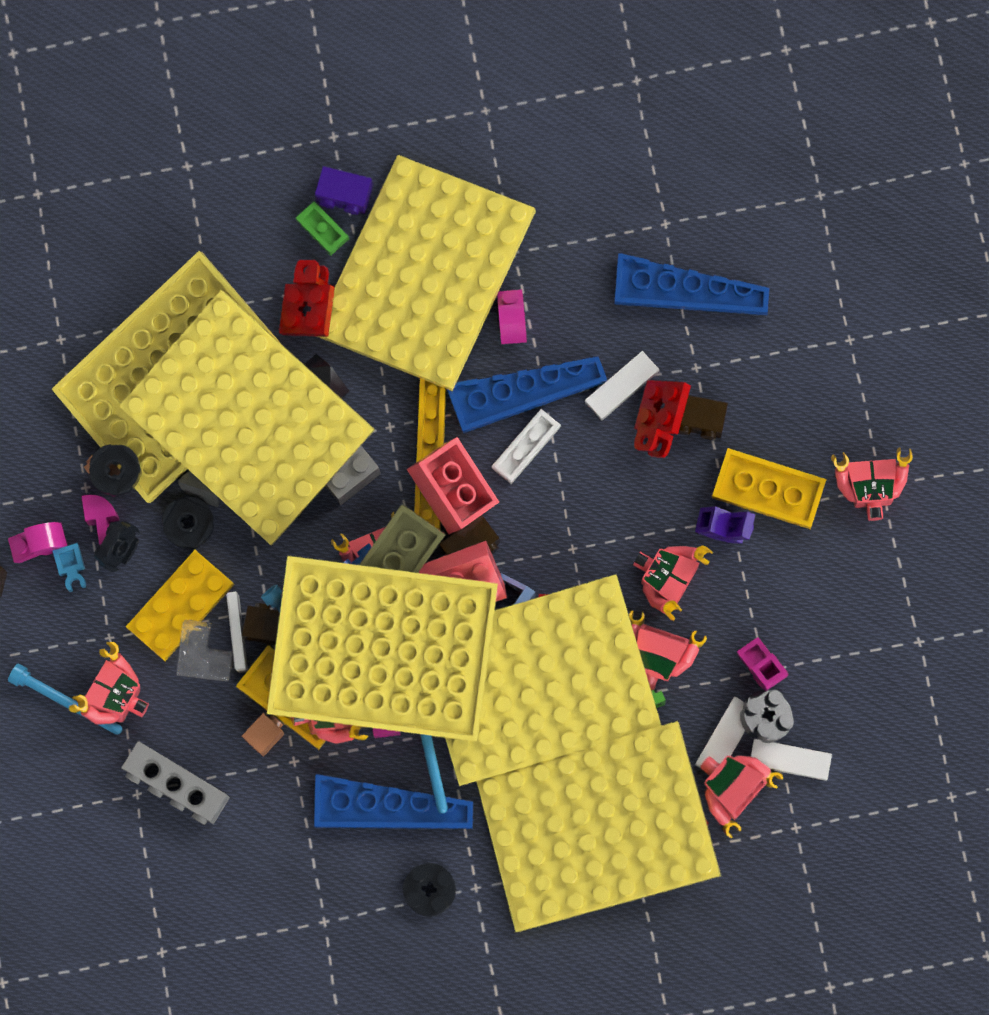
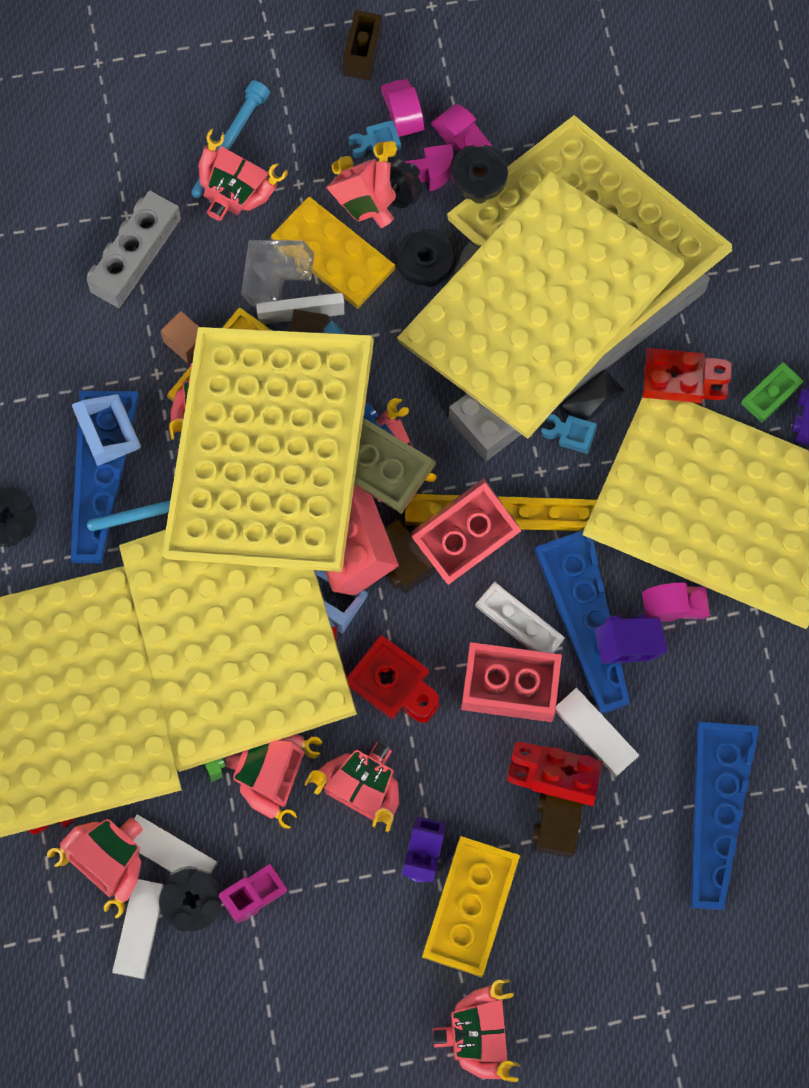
camera: 80 degrees right, 5 degrees down
(64, 489) = (458, 128): none -> dark pink brick
(126, 573) = (366, 187): none -> coral torso
(359, 394) = (573, 434): none -> dark azure plate
(359, 811) = (104, 454): none -> light blue tile
(547, 353) = (630, 639): none -> dark purple brick
(582, 452) = (511, 682): none -> coral brick
(586, 539) = (406, 690): none -> red plate

